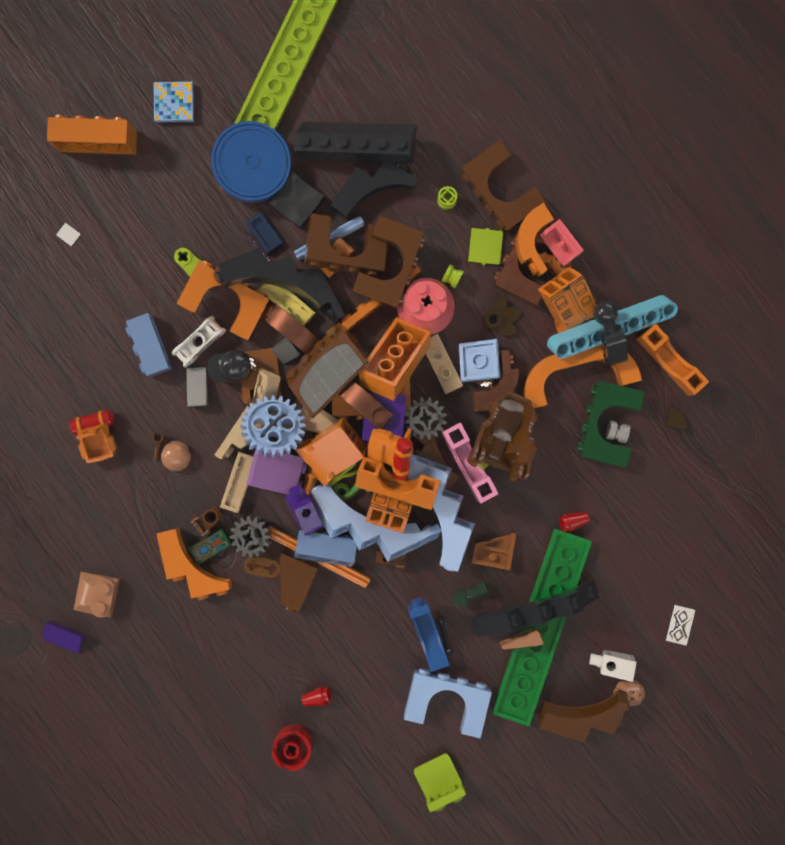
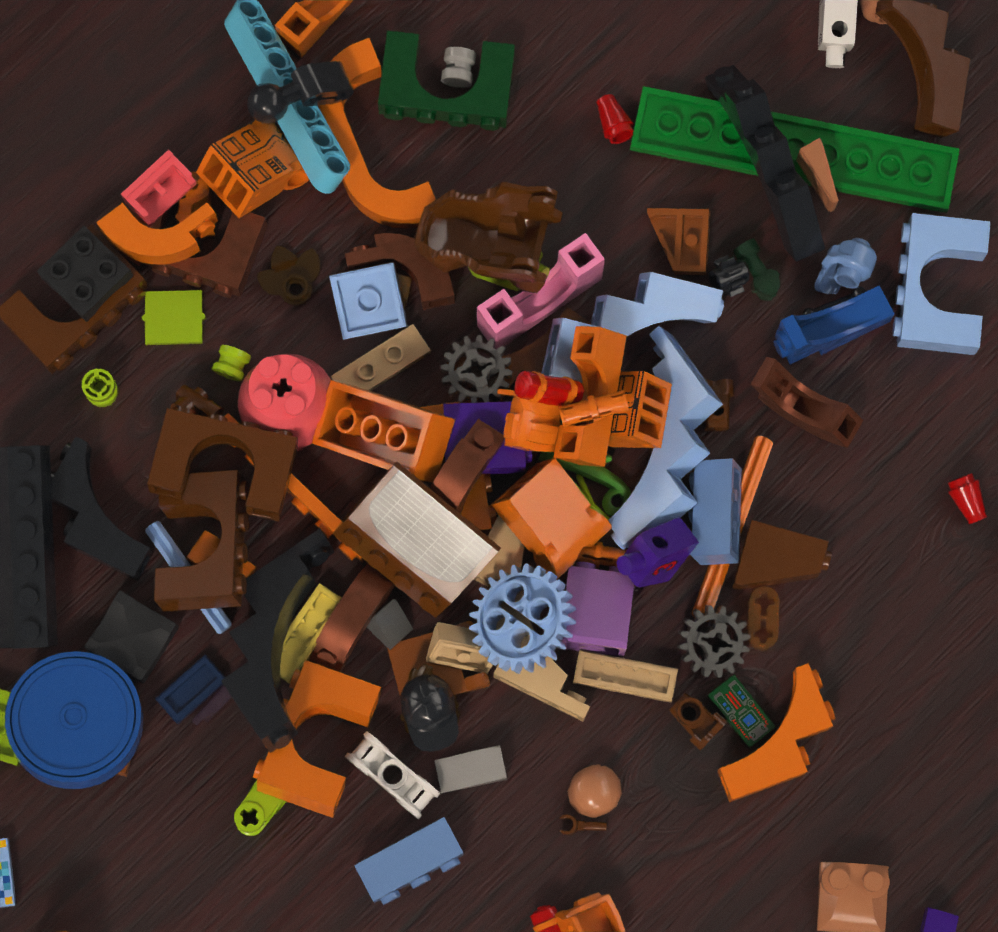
camera: 95 degrees left, 10 degrees down
(382, 610) = (804, 407): none -> copper arch
(387, 484) = (593, 408): none -> orange pin
(429, 253) = (197, 401): none -> reddish brown plate
(464, 647) = (846, 266): none -> medium blue head
(467, 576) = (729, 275): none -> black gear
(514, 193) = (85, 273): none -> black brick

